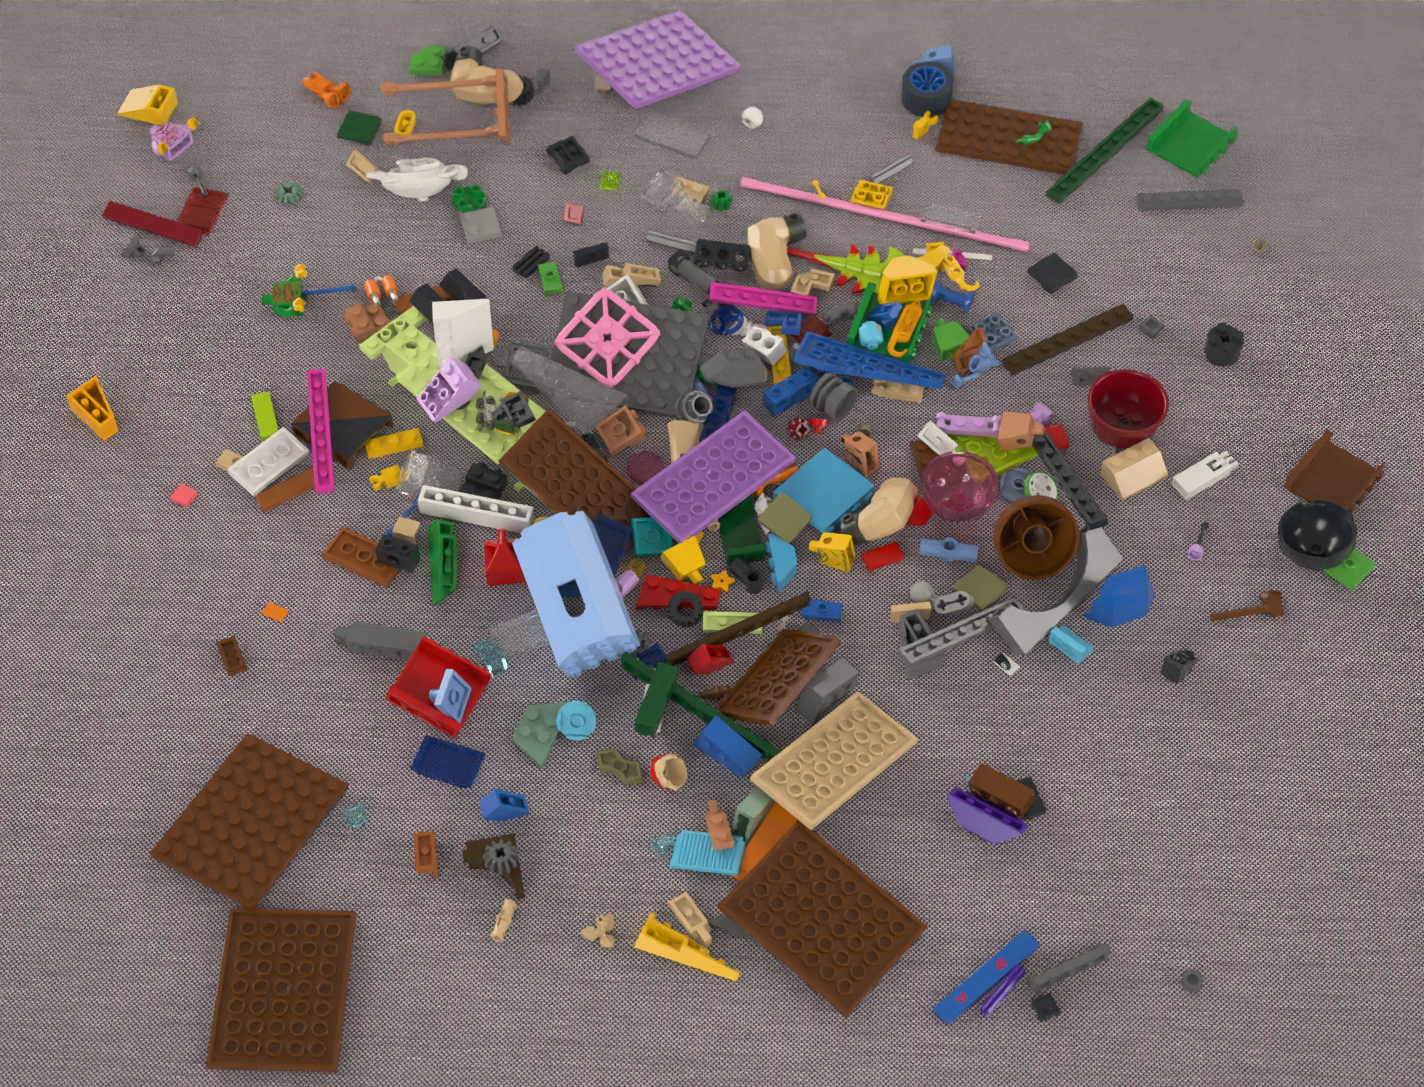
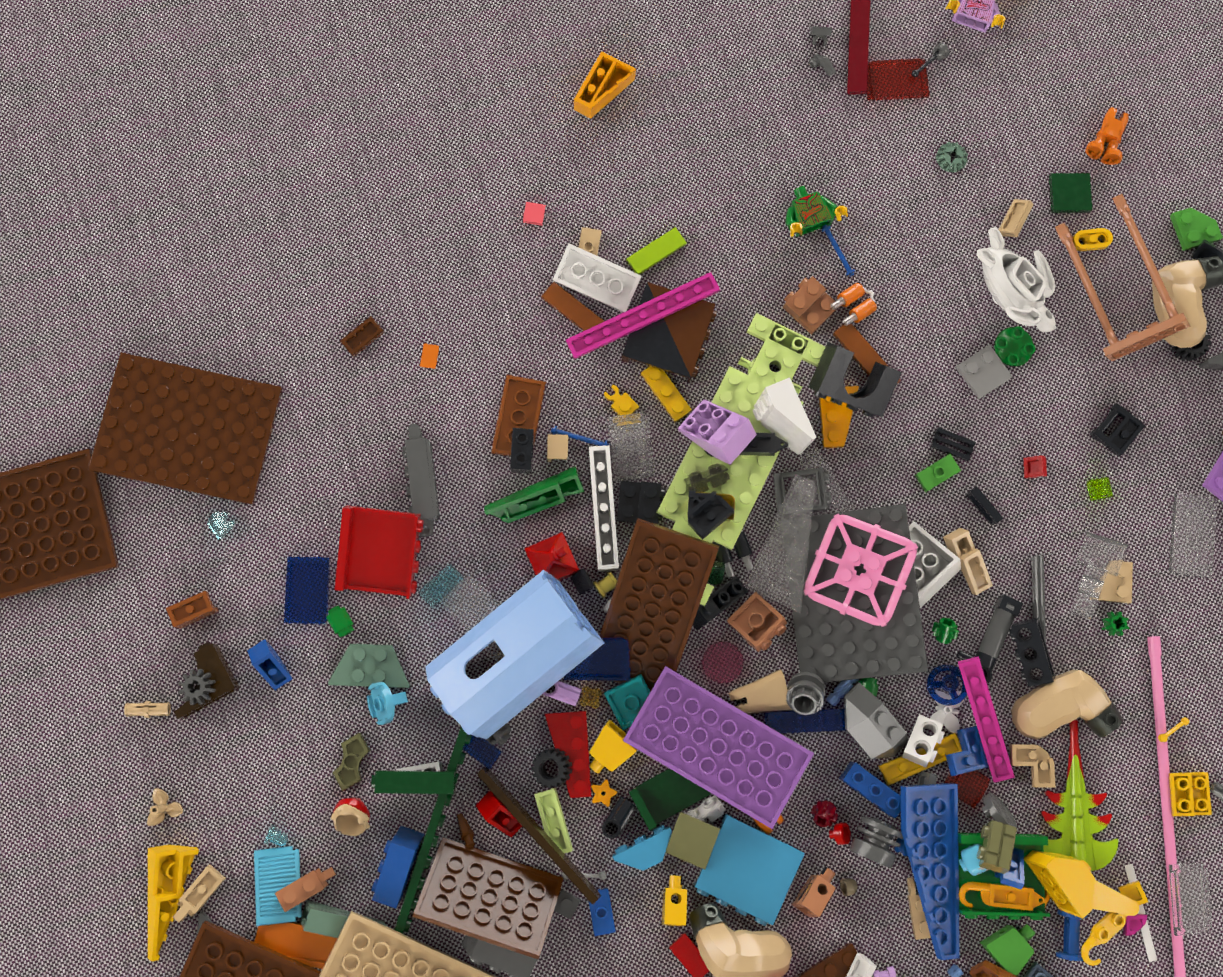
camera: 65 degrees right, 25 degrees up
(451, 696) = (365, 570): medium blue tile -> none
(488, 739) = (340, 621): none -> green brick
(863, 310) = (997, 846): none -> olive brick

